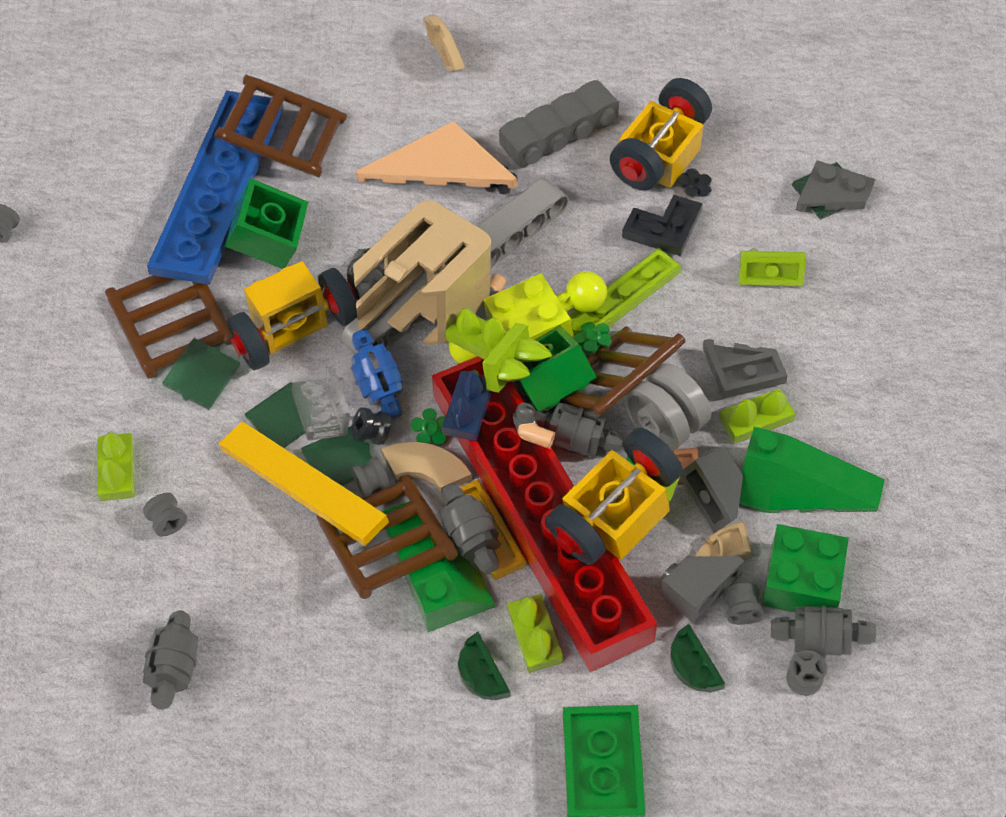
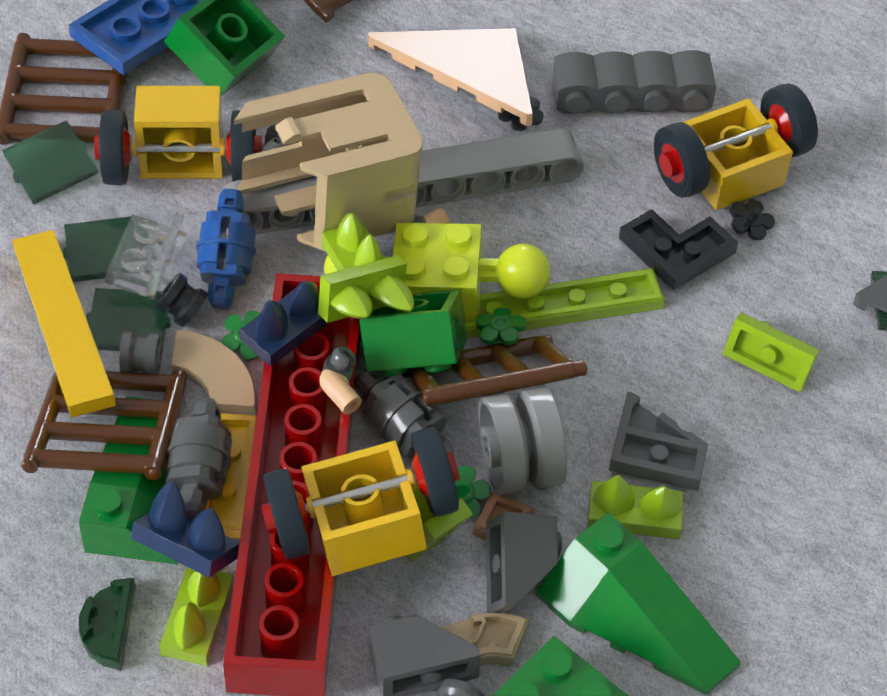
camera: 25 degrees right, 5 degrees down
(512, 587) = (191, 542): none -> dark blue tile

